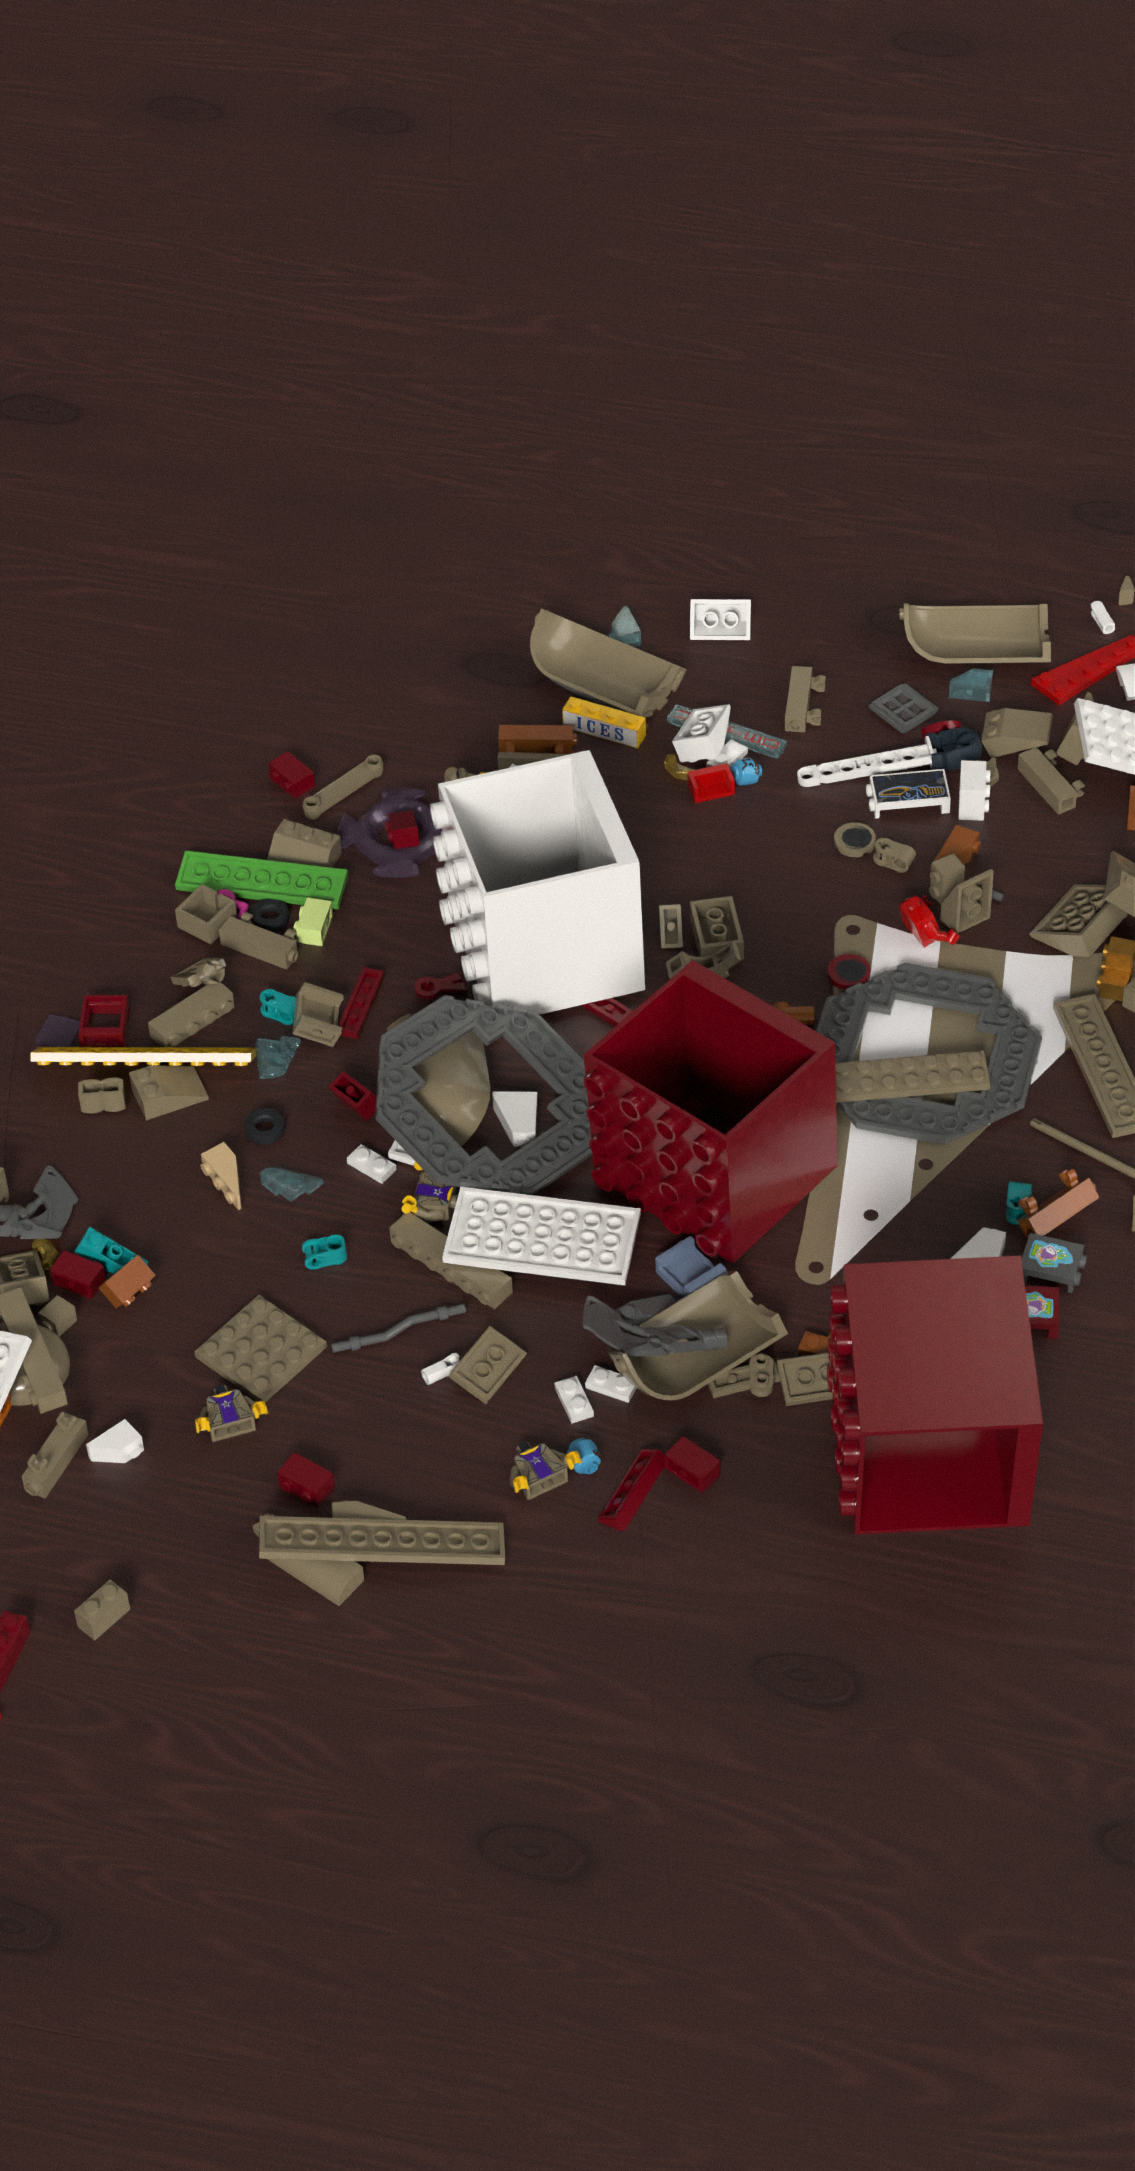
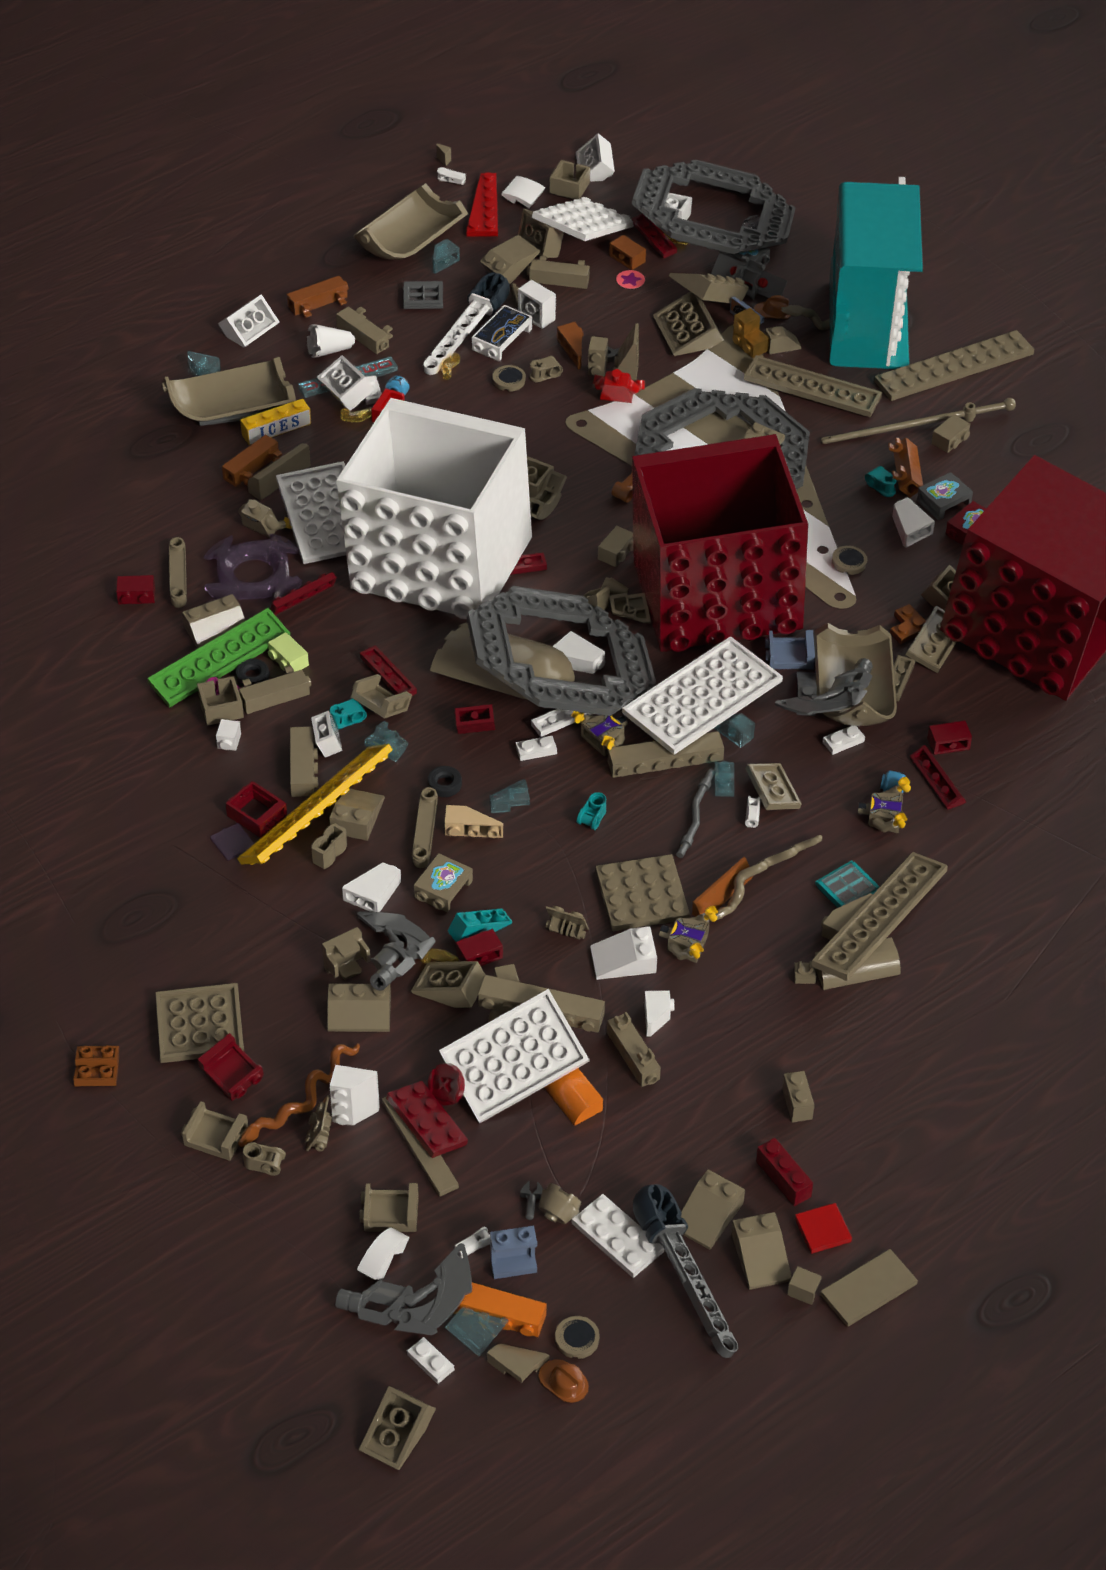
camera: 55 degrees left, 0 degrees up
(86, 1157) = (373, 887): none -> white slope
(127, 1281) = (517, 925): dark orange brick -> none
(134, 1197) = (442, 882): none -> dark tan panel
(164, 1315) = (574, 919): none -> dark tan hinge
(169, 1383) = (625, 954): none -> white slope
(175, 947) = (228, 735): none -> white brick
(192, 1147) = (425, 827): none -> dark tan piece
(206, 971) = (274, 731): dark tan plate -> none
(235, 1008) = (326, 734): none -> white brick
(305, 1479) = (783, 929): dark red brick -> none
(315, 1404) = (720, 890): none -> dark orange slope
(360, 1413) = (758, 868): none -> dark tan animal
(397, 882) = (306, 591): none -> dark red plate
(402, 829) = (262, 562): dark red brick -> none
(415, 1496) = (846, 884): none -> clear piece
(430, 987) = (412, 633): dark red piece -> none
(469, 1322) = (724, 779): none -> clear light blue slope
(538, 1294) = (737, 729): none -> clear light blue slope
(574, 1399) = (839, 764): white plate -> none
(752, 685) = (328, 340): none -> white cone
(761, 1373) = (909, 666): dark tan plate -> none
(811, 639) = (317, 295): none -> dark orange brick
(822, 786) = (448, 364): none -> clear yellow arm
(848, 971) = (617, 443): tile -> none
(873, 1242) = (849, 559): none -> tile
(940, 726) = (468, 288): dark red tile -> none
(1111, 837) = (630, 279): none -> coral sticker

